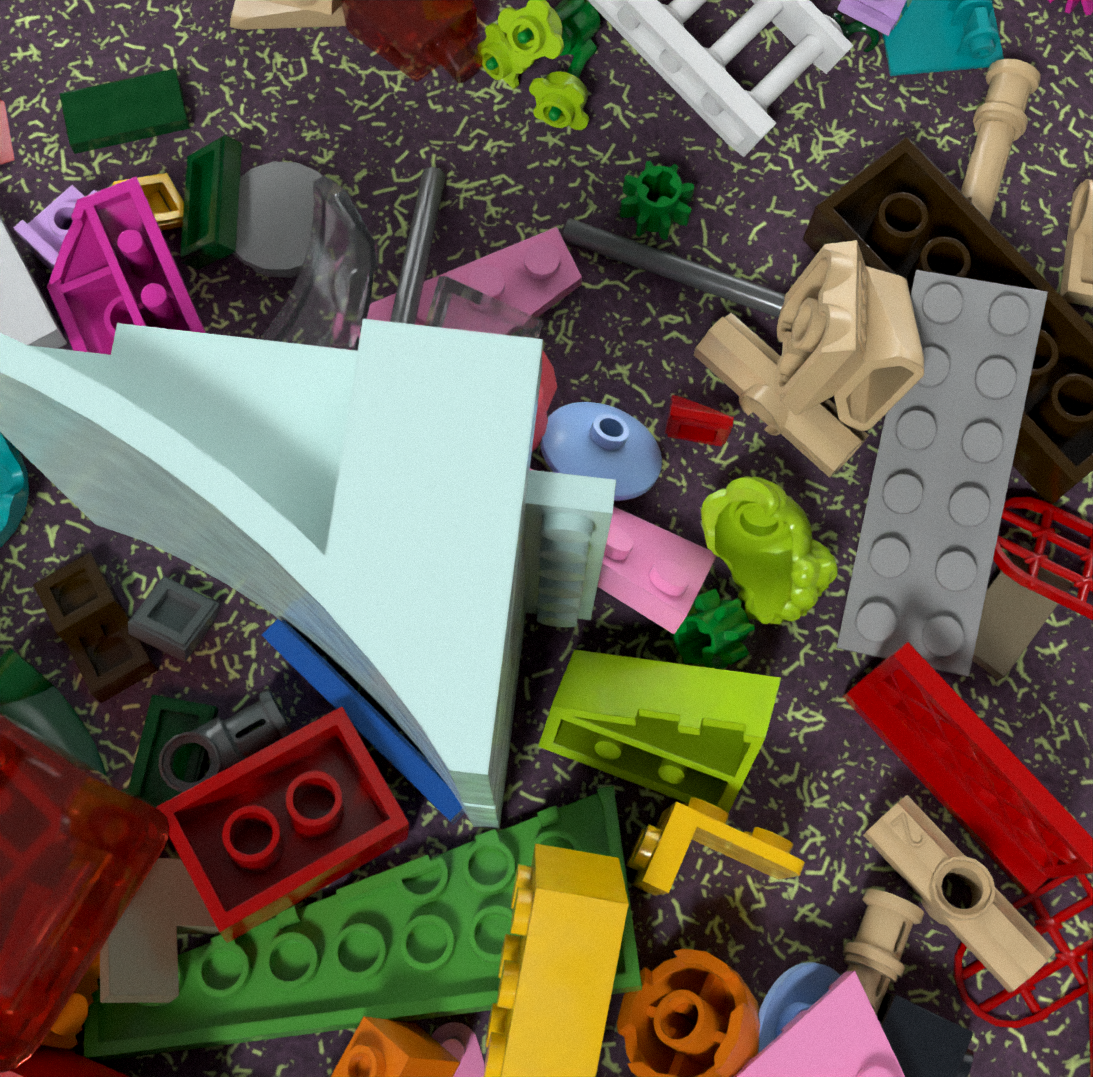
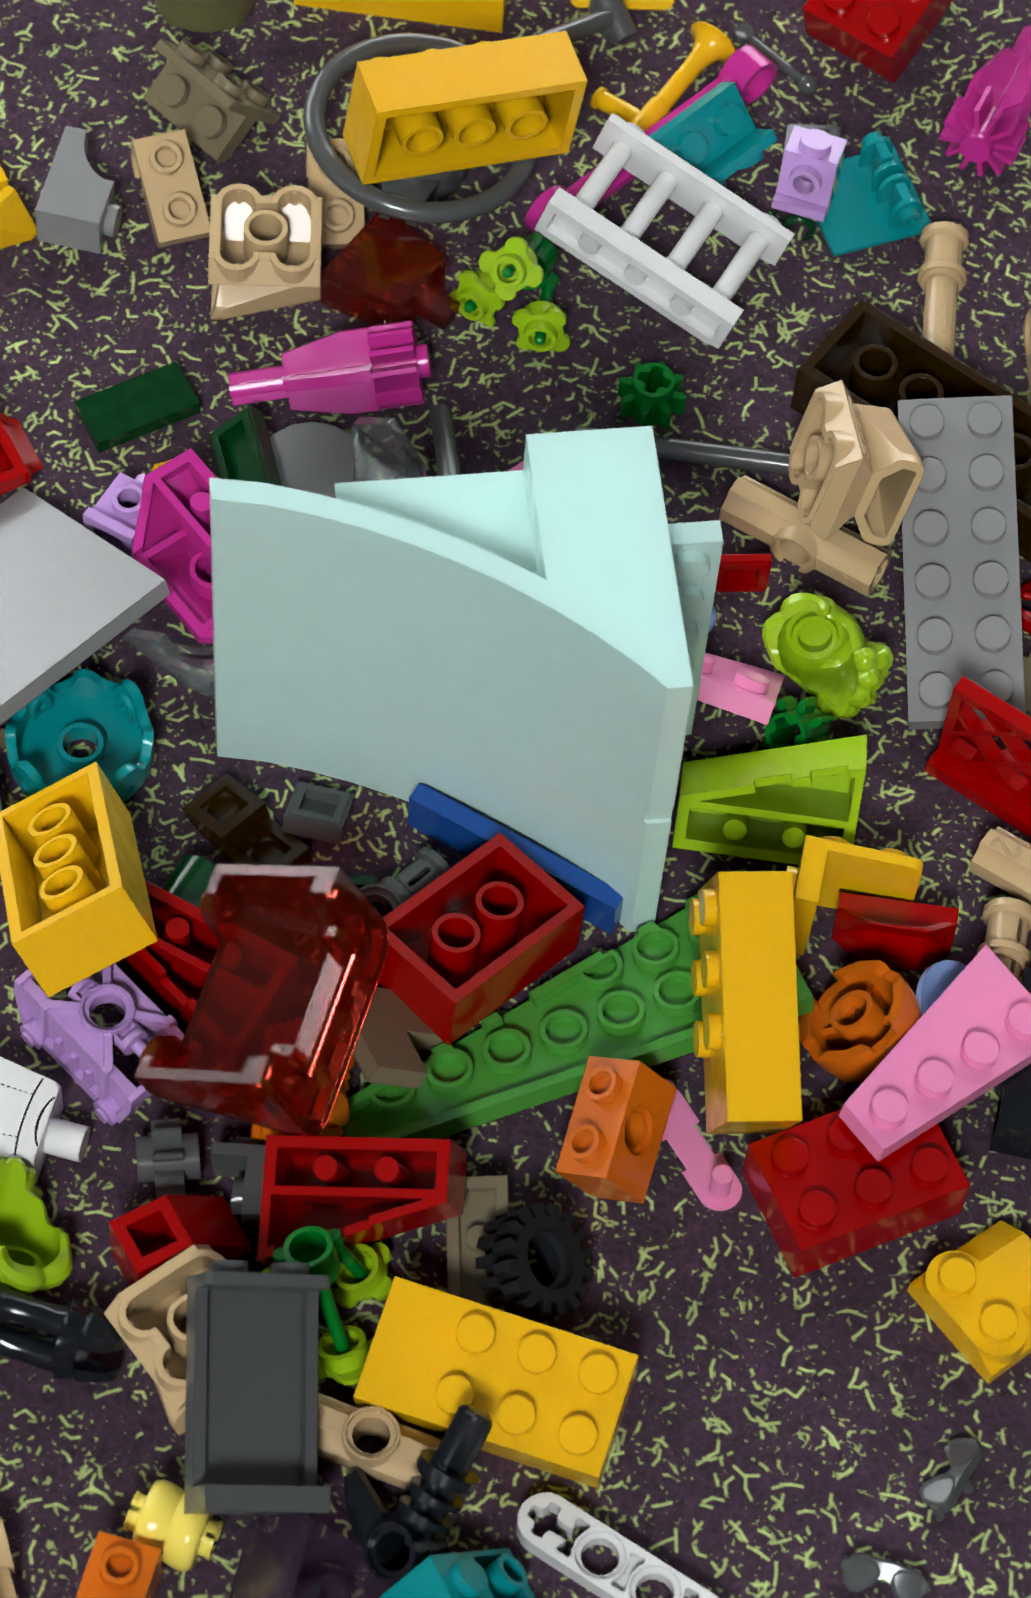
camera: 15 degrees left, 15 degrees down
(341, 114) = (343, 372): none -> dark pink piece
(758, 901) = (893, 930): none -> red slope

